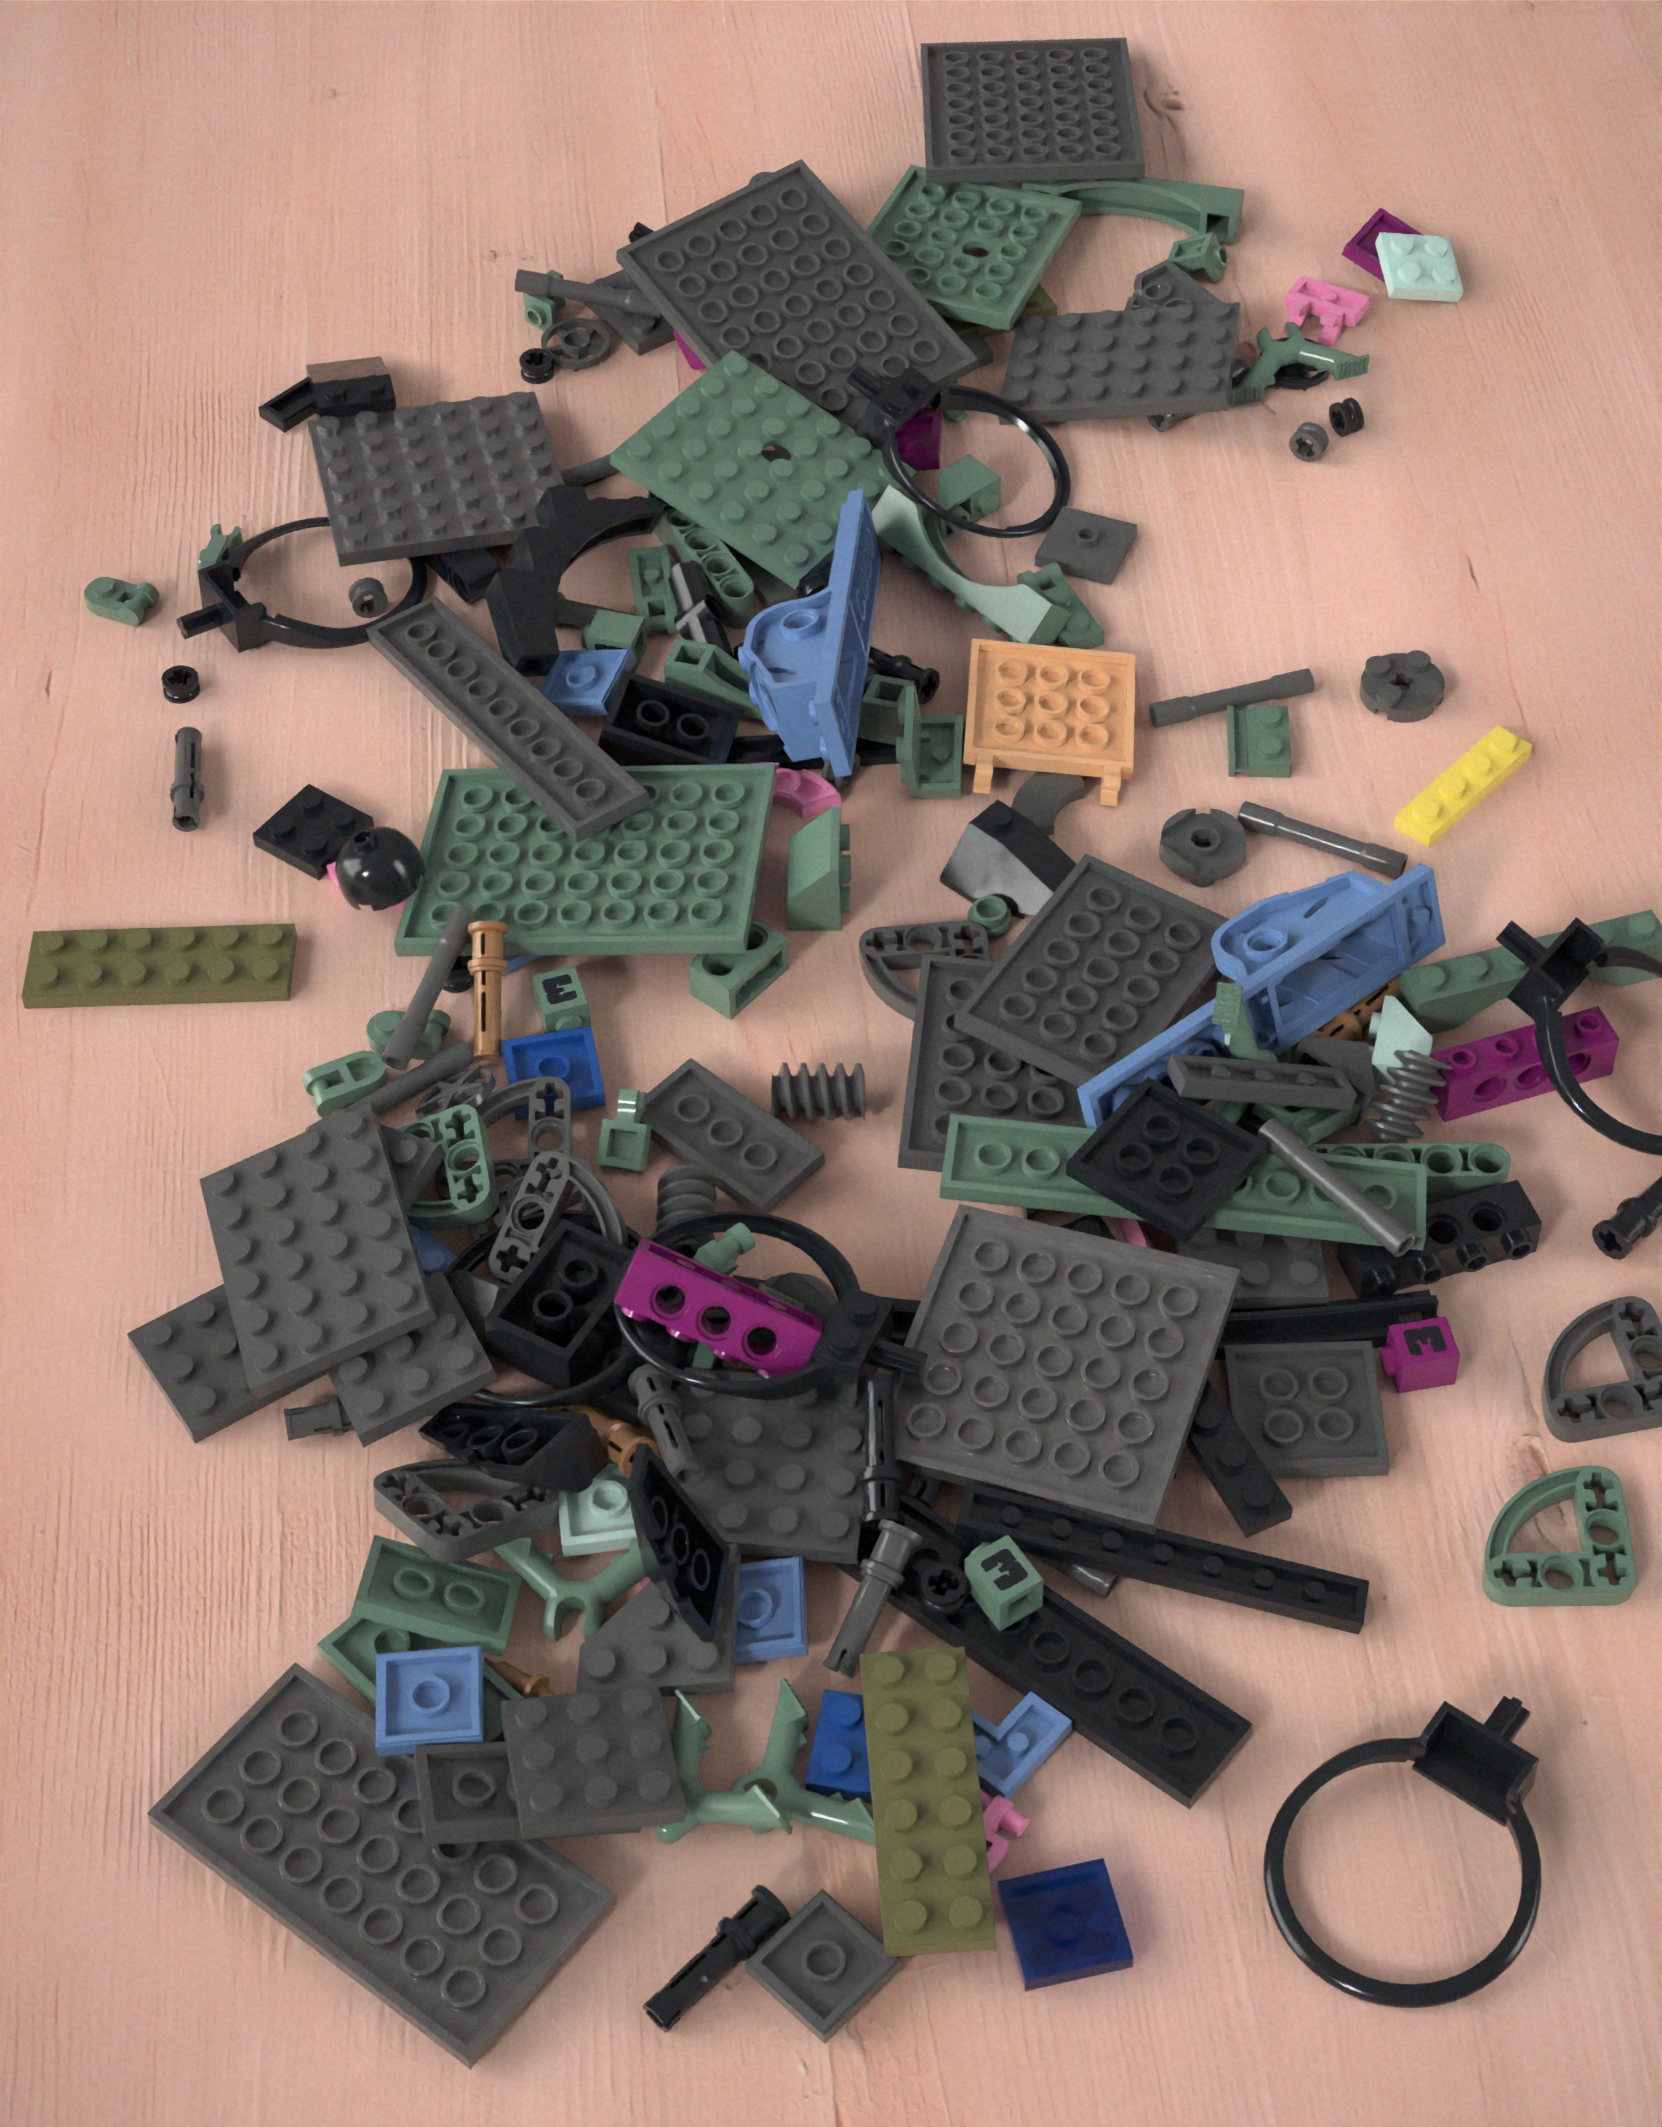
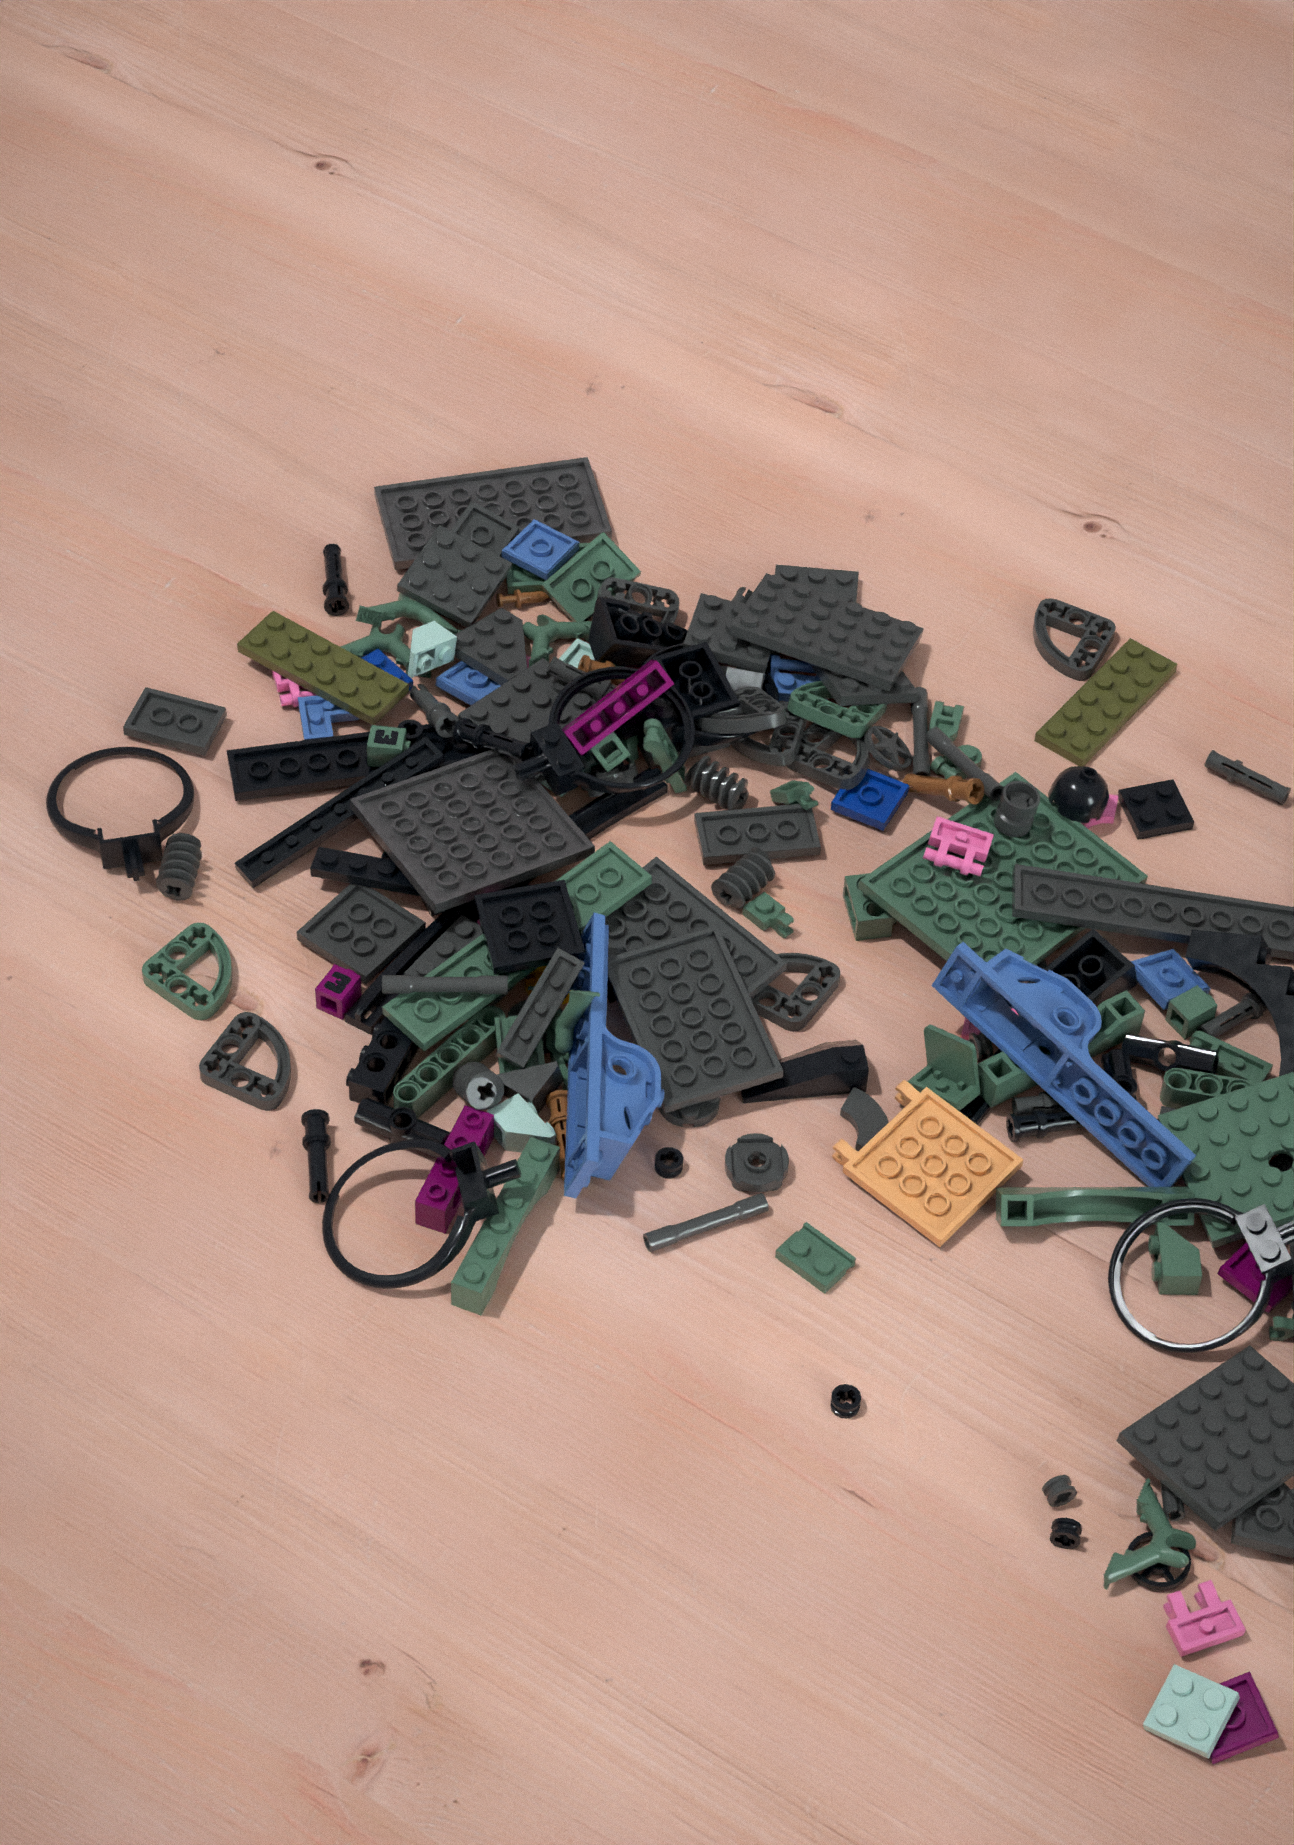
camera: 125 degrees right, 0 degrees up
(37, 1049) = (1087, 632): none -> dark grey beam
(482, 873) = (1017, 809): none -> dark grey wheel
(560, 1000) = (911, 821): sand green brick -> none
(586, 899) = (960, 840): none -> bright pink plate
(677, 1543) = (506, 619): black wedge -> none
(774, 1679) = (430, 648): none -> light aqua slope
(817, 874) = (896, 972): sand green slope -> none
(823, 1966) = (297, 602): dark grey plate -> none
(841, 1046) = (767, 913): none -> sand green plate
(991, 914) = (800, 1035): sand green plate -> none
(1064, 1924) = (225, 682): clear blue plate -> none
(1081, 628) = (1025, 1247): sand green plate -> none
(1086, 545) = (1073, 1303): dark grey plate -> none
(1186, 708) = (874, 1242): dark grey piece -> none
(1201, 1927) = (175, 721): none -> dark grey plate
(1393, 616) = (845, 1392): none -> black bush
(1412, 670) = (789, 1346): dark grey plate -> none
(1443, 1673) = (179, 866): none -> dark grey piece
(1462, 786) = (680, 1327): light yellow plate -> none
(1528, 1148) = (397, 1123): none -> black piece

